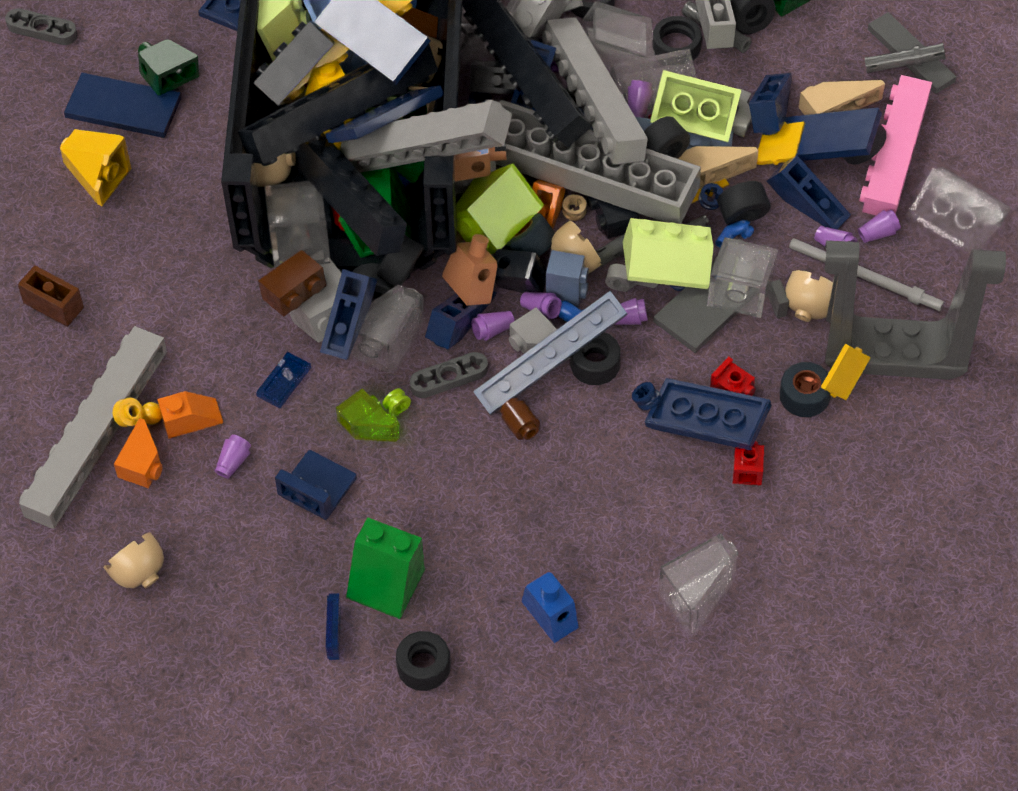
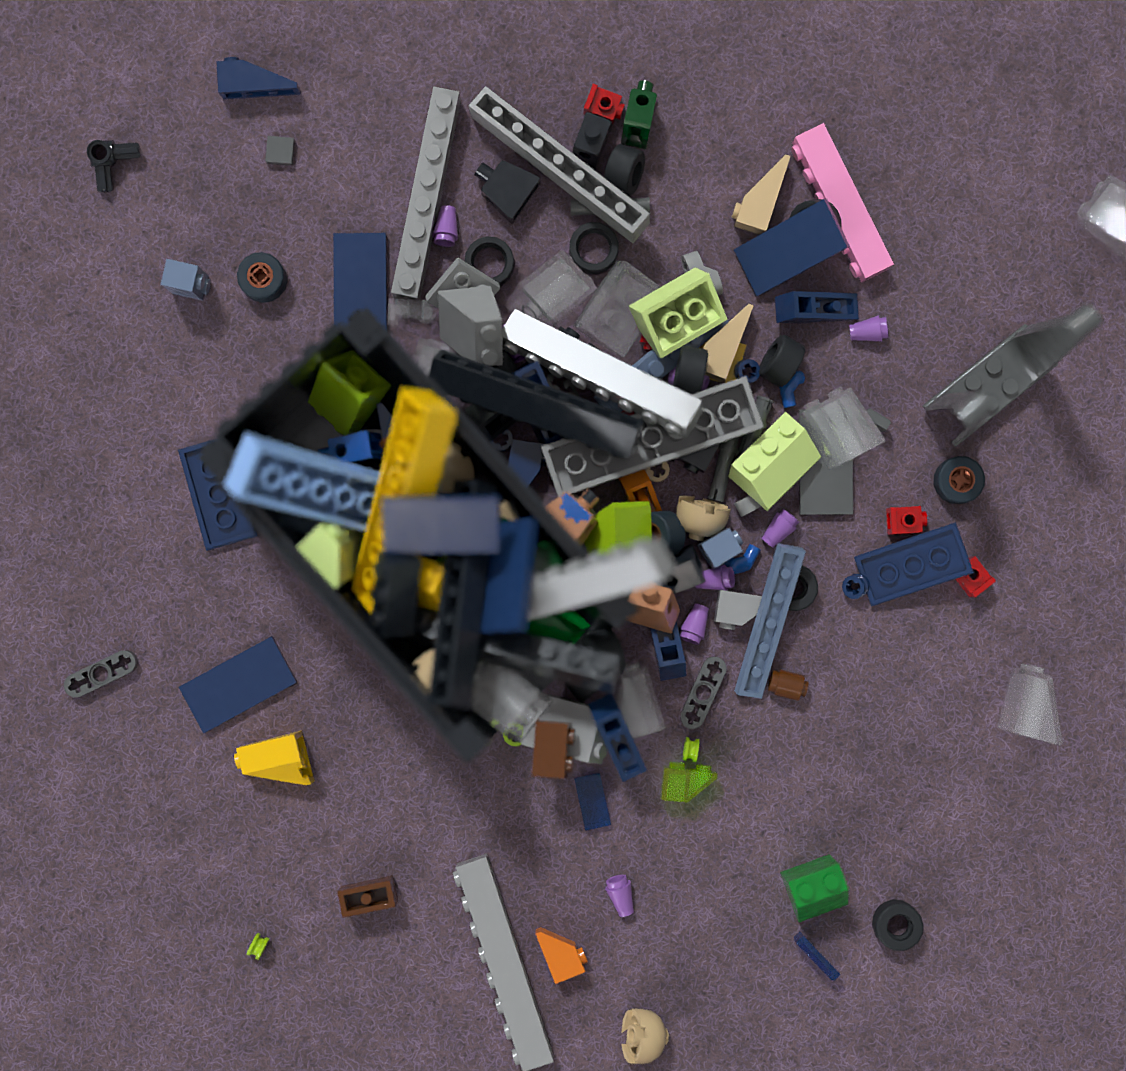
camera: 45 degrees left, 30 degrees up
(149, 412) = (523, 935): yellow plate -> none
(167, 65) = (238, 626): dark green torso -> none
(188, 413) = (559, 891): orange slope -> none
(315, 484) = (699, 862): dark blue bracket -> none
(546, 602) = (943, 811): blue torso -> none
(639, 97) = (628, 340): medium lavender cone -> none
(770, 103) = (717, 245): dark blue slope -> none
(781, 145) = (755, 277): yellow piece -> none
(808, 296) = (900, 401): tan cylinder -> none
(845, 372) = (983, 449): yellow piece -> none
(880, 226) = (890, 288): medium lavender cone -> none
(898, 38) = (773, 98): dark grey tile -> none
(905, 58) = (783, 109): dark grey pin -> none
(914, 295) = (962, 326): light grey bar -> none
(958, 210) = (934, 222): clear slope -> none

